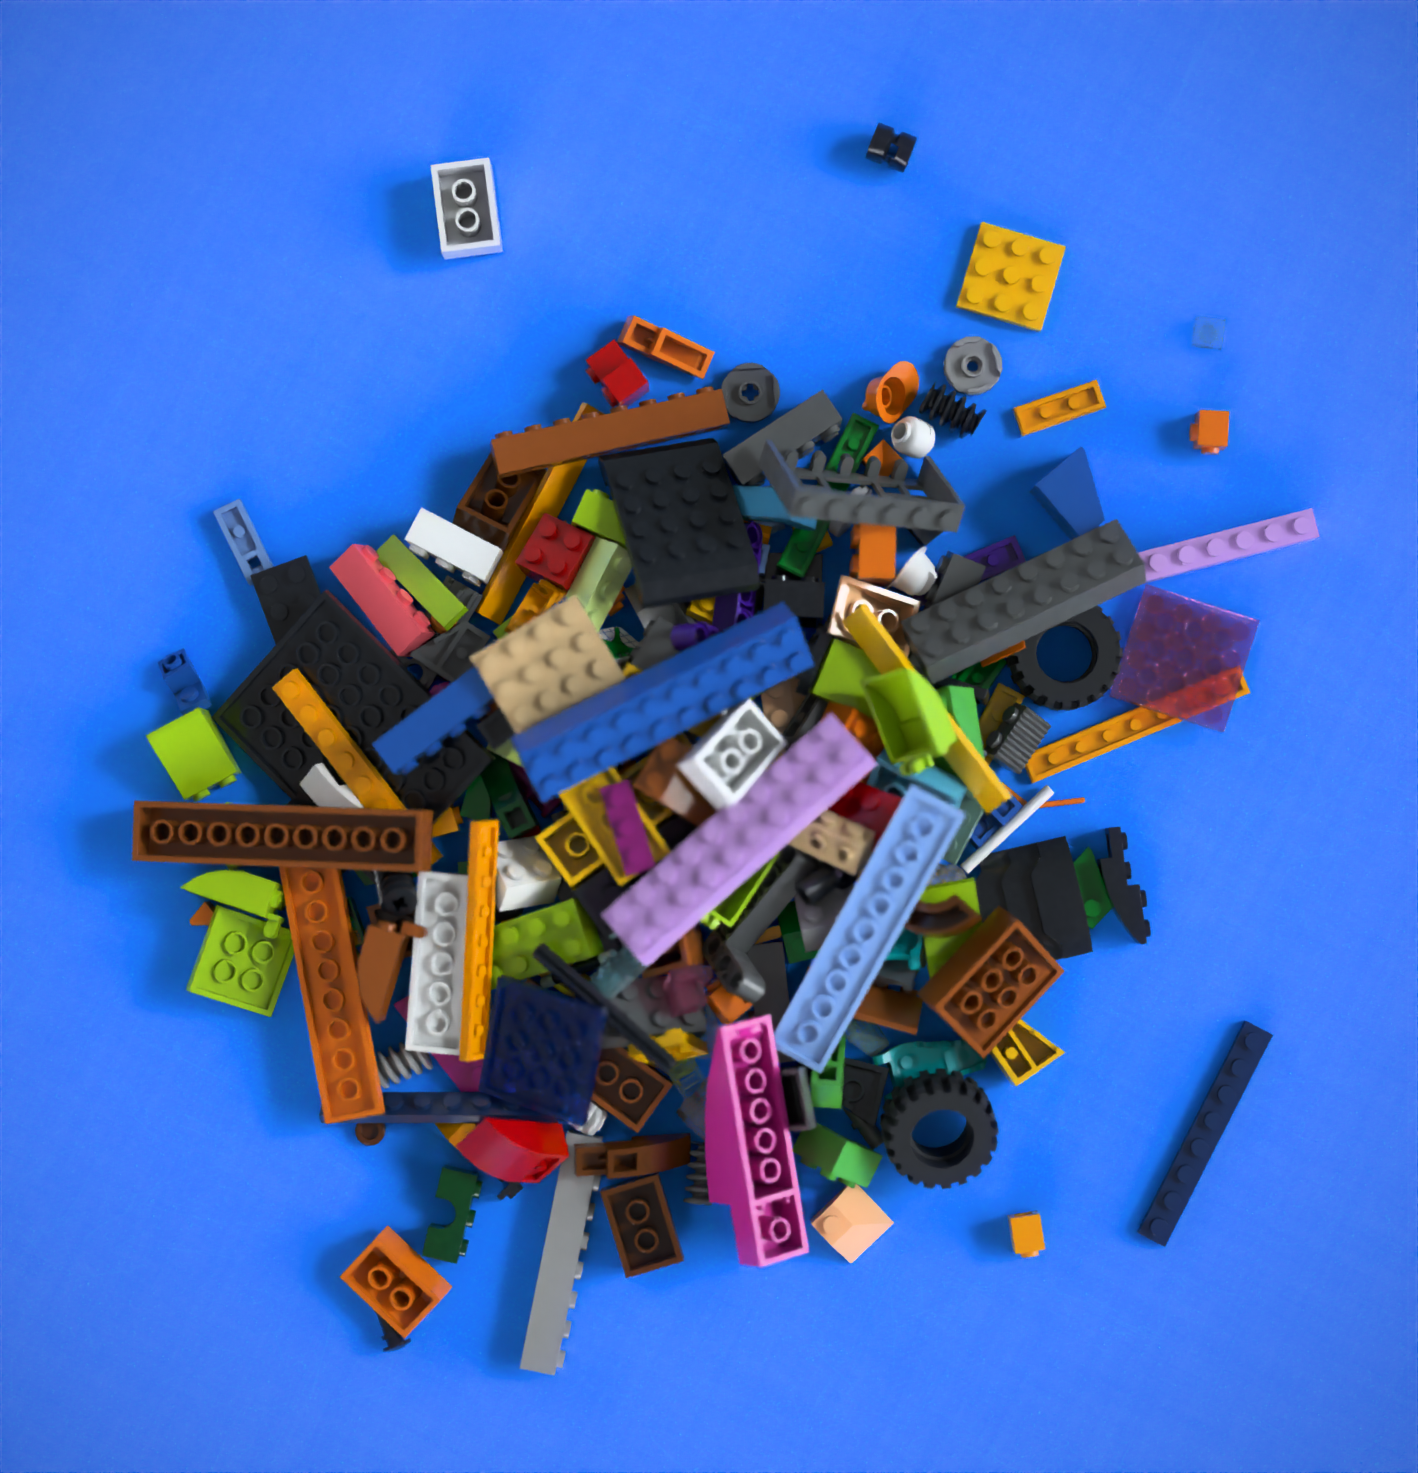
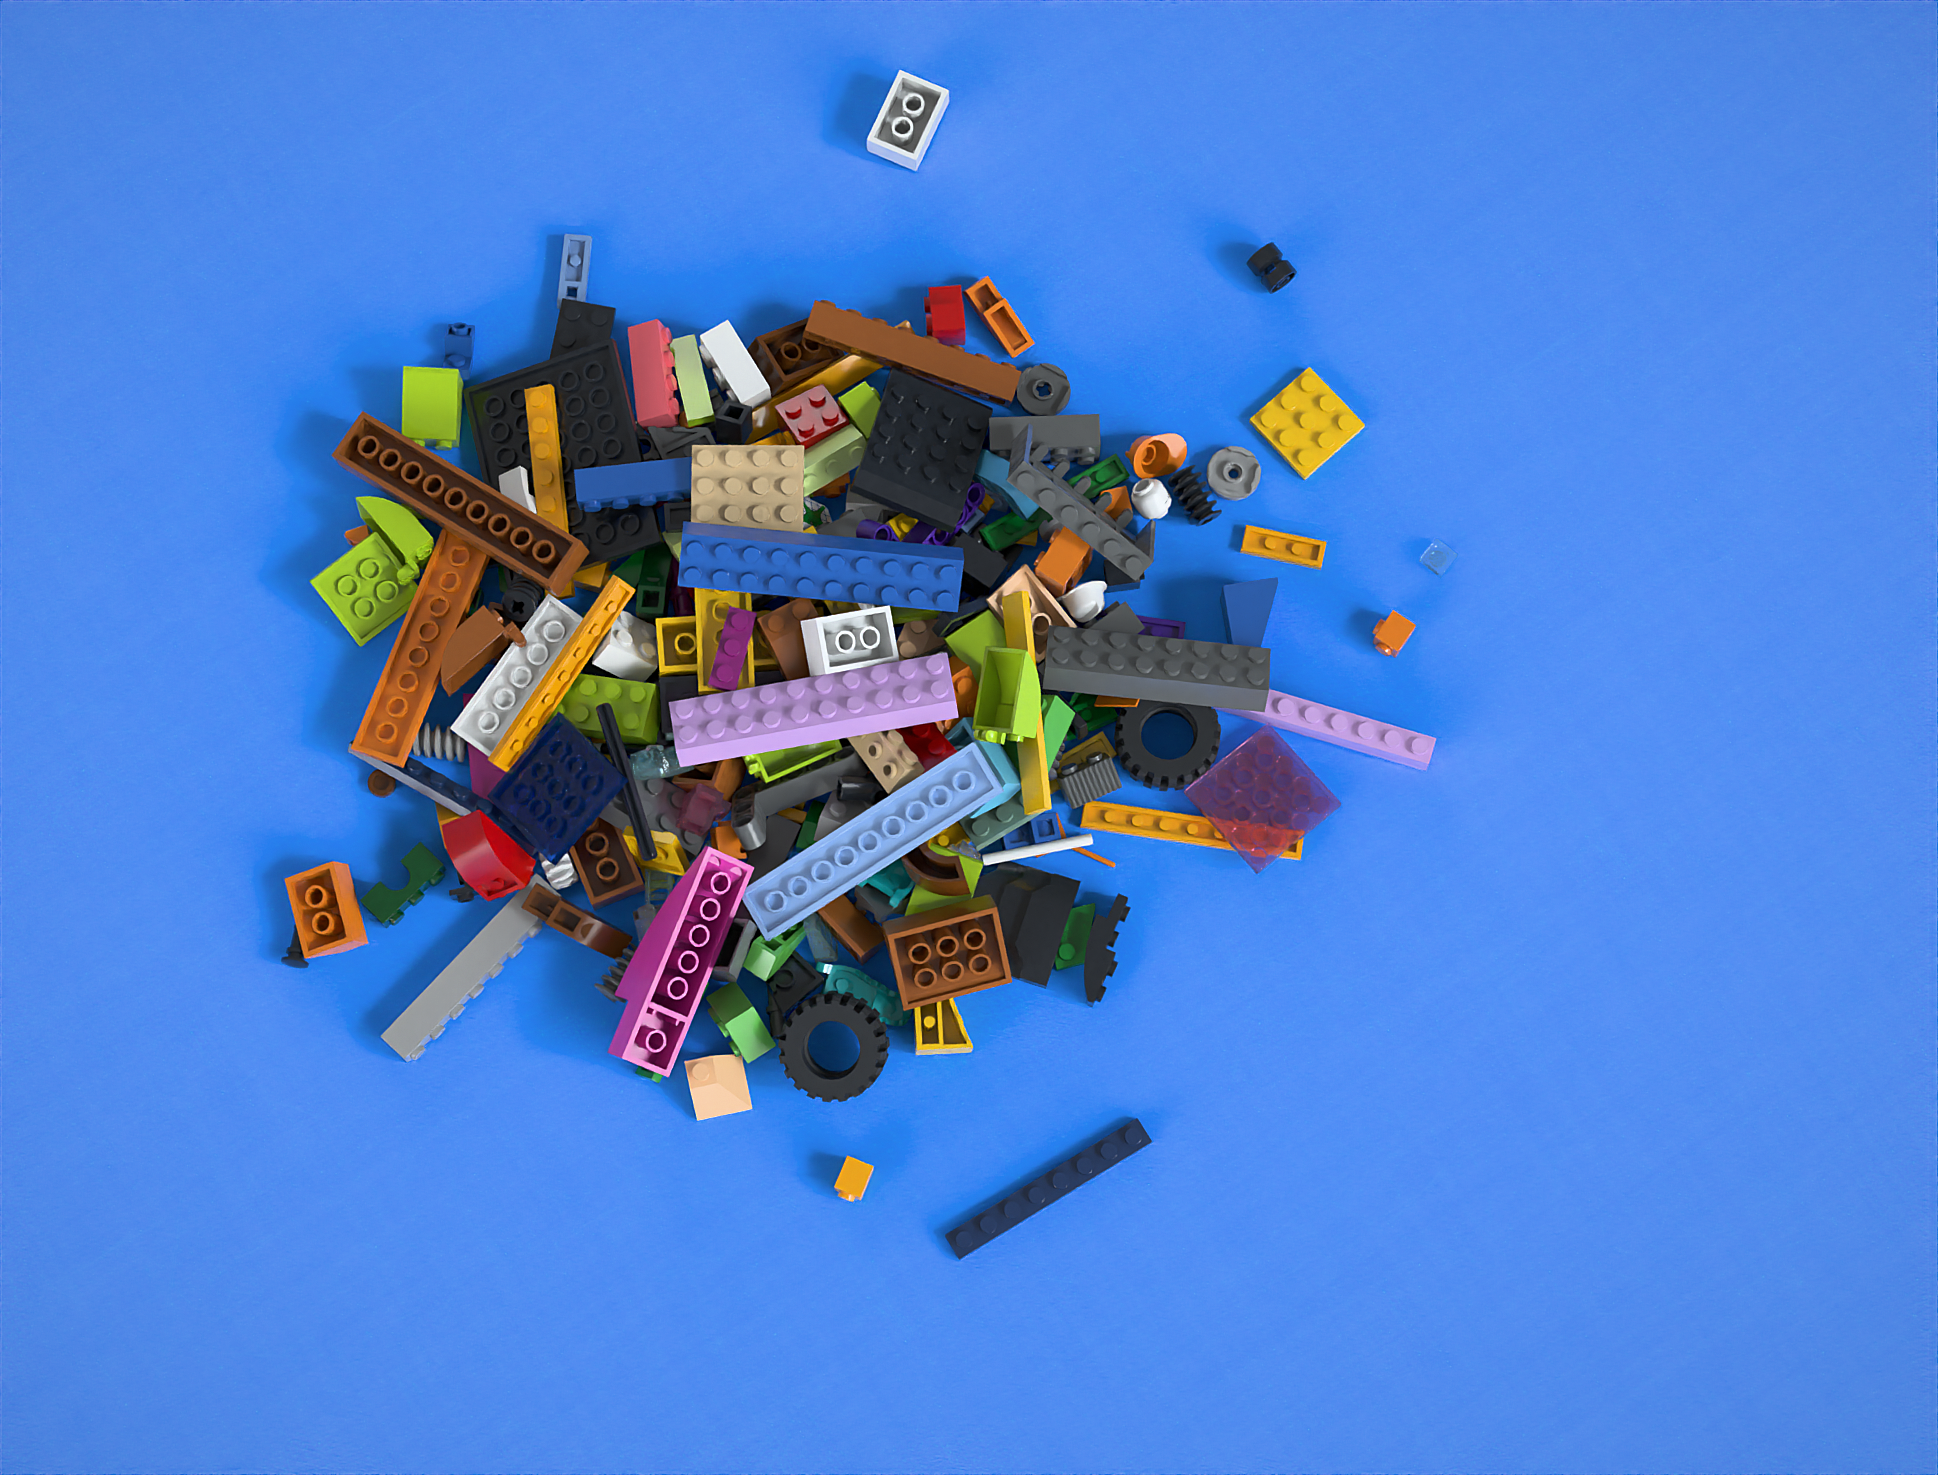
camera: 25 degrees right, 10 degrees down
(488, 602) = (734, 423): none -> black brick
(642, 1224) = (550, 983): reddish brown brick -> none

